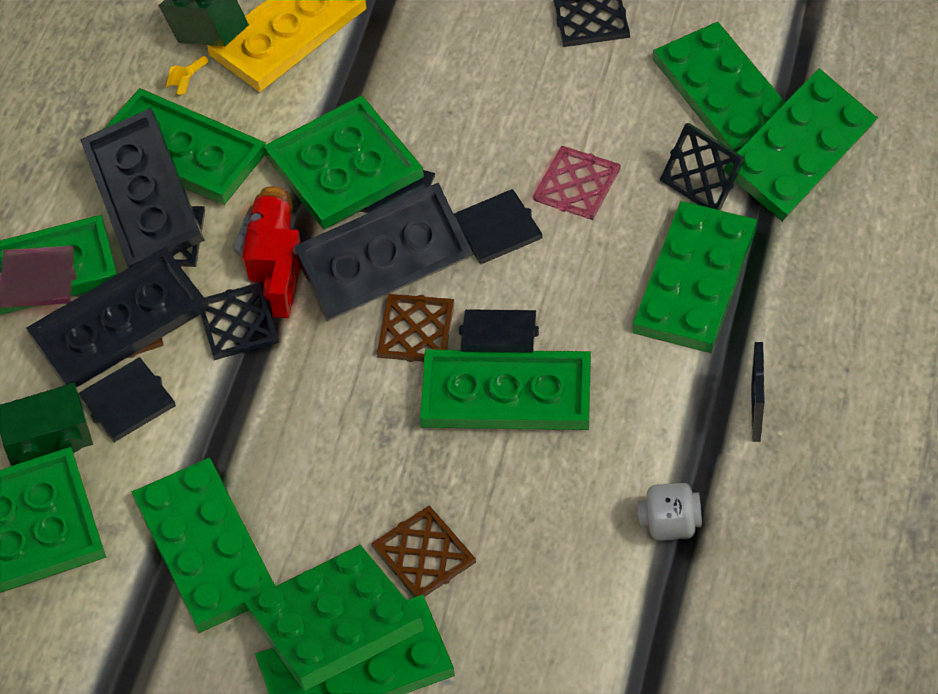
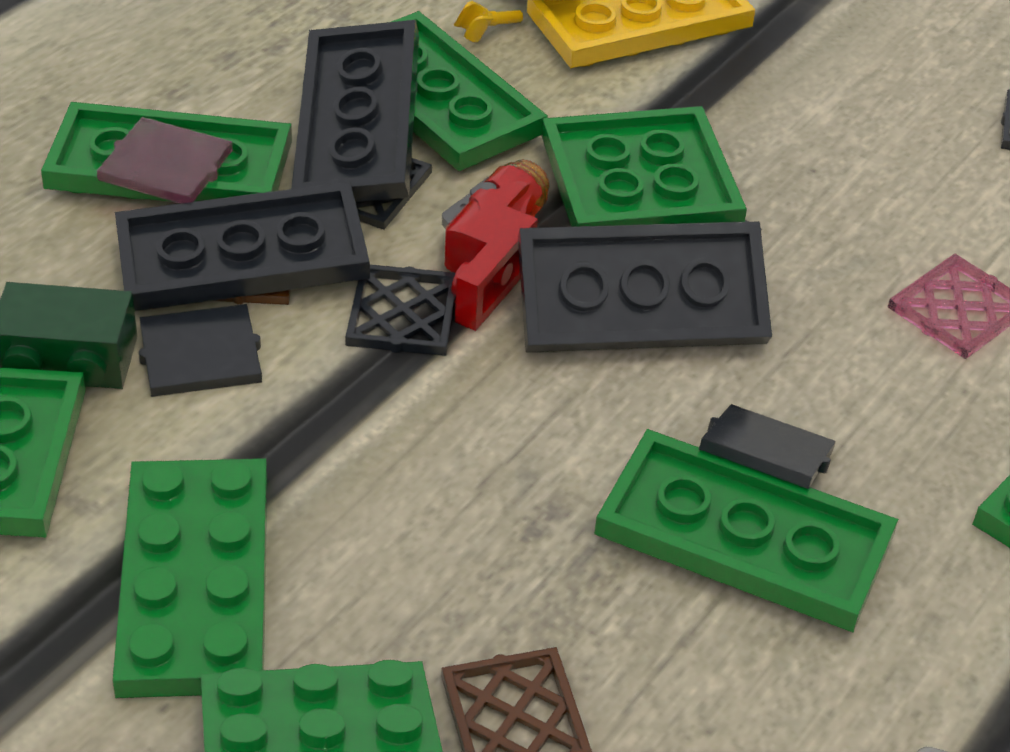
camera: 15 degrees right, 10 degrees down
(420, 304) = (668, 373): reddish brown window -> none
(498, 226) = (823, 320): black piece -> none

